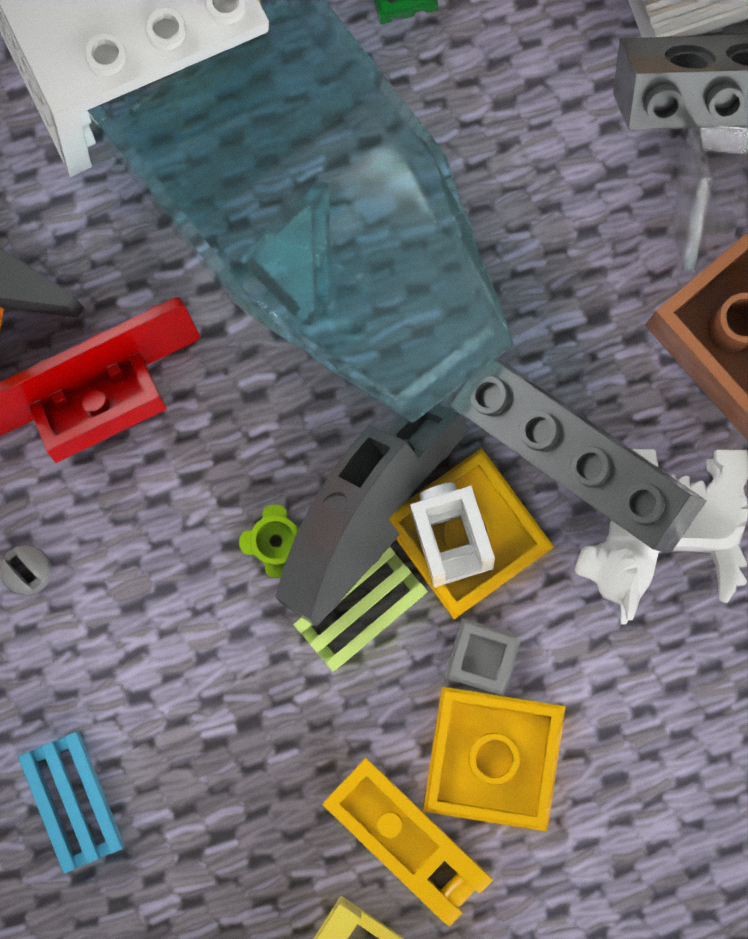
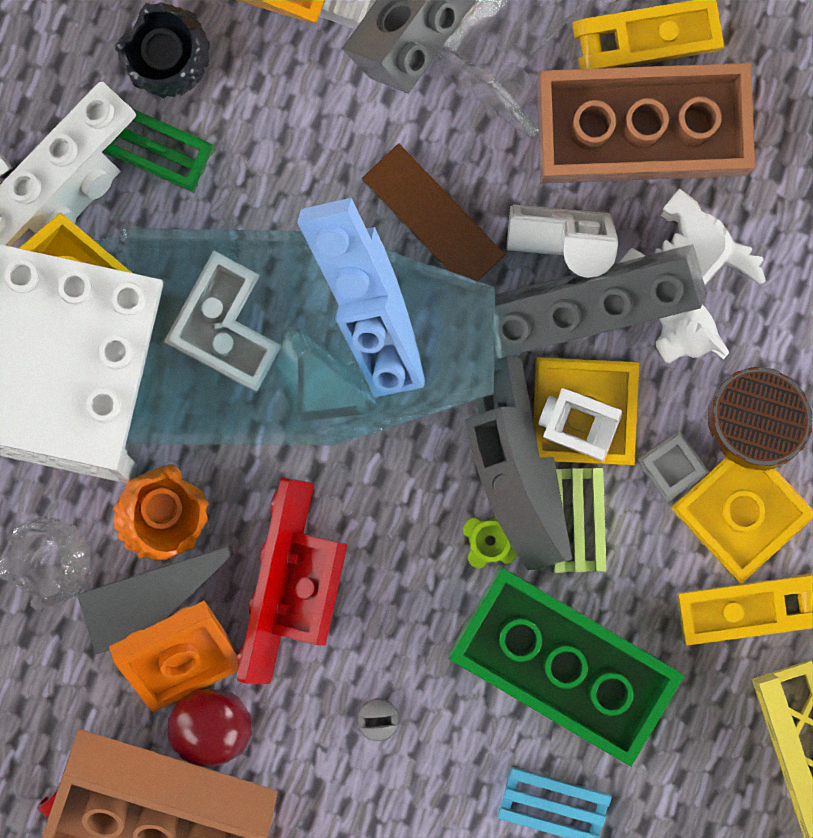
camera: 55 degrees left, 5 degrees up
(58, 215) = (160, 514): none -> orange hair
(210, 702) = (565, 665): none -> green brick
(262, 123) = (209, 327): none -> white brick
(413, 227) = (367, 295): none -> light blue slope
(535, 249) = (432, 215): none -> reddish brown tile
(593, 702) = (760, 418): none -> tile
(621, 393) = (582, 237): none -> white brick

